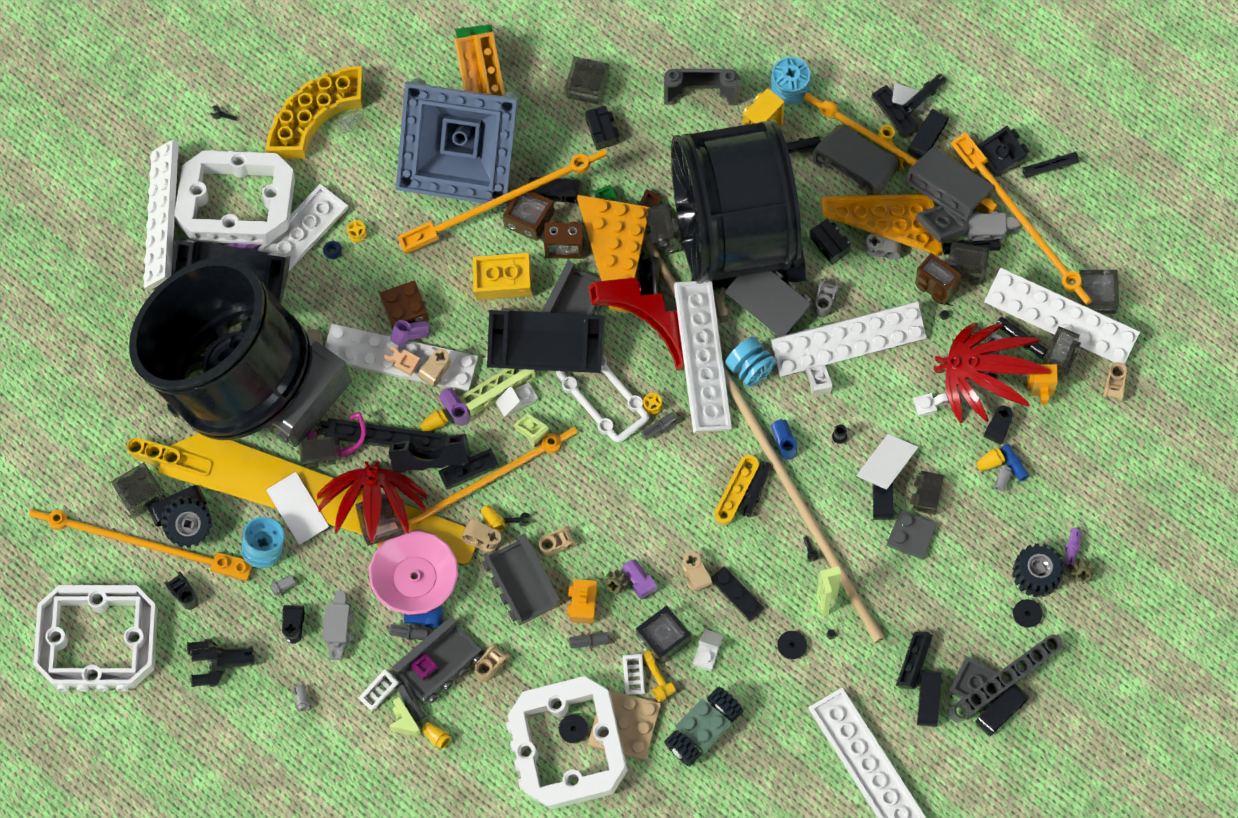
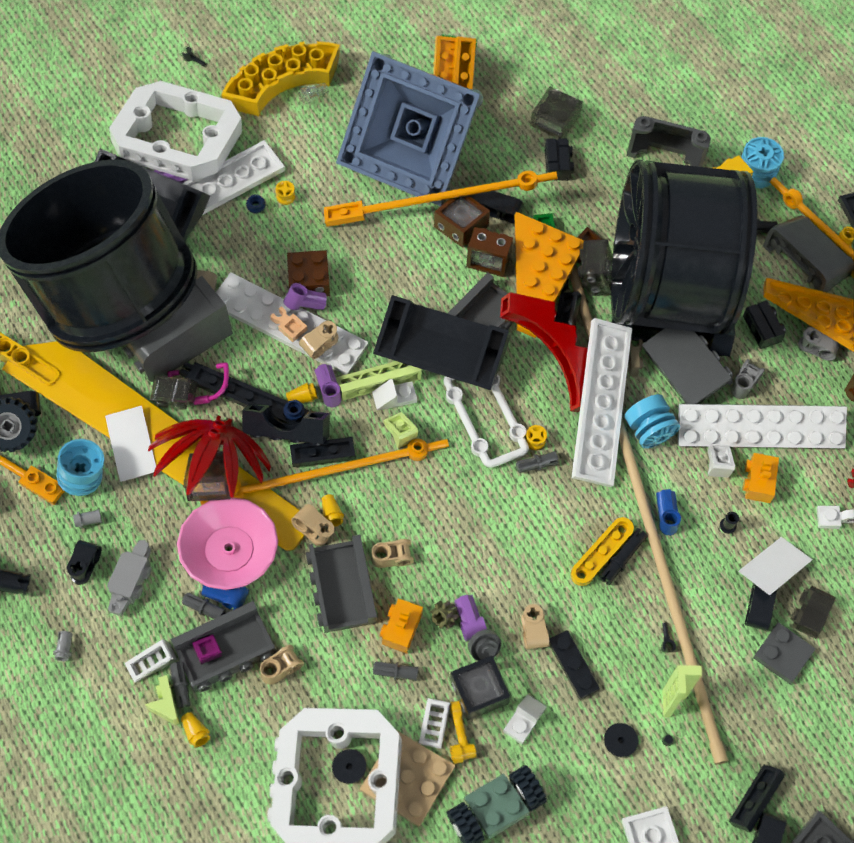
camera: 10 degrees right, 5 degrees down
(161, 214) = (103, 118): white plate -> none
(432, 433) = (294, 404): none -> dark blue plate
(502, 276) = (417, 271): yellow piece -> none
(518, 519) = (359, 519): black hand -> none
(657, 598) = (484, 644): none -> dark grey plate
(858, 386) = (761, 478): none -> light orange brick

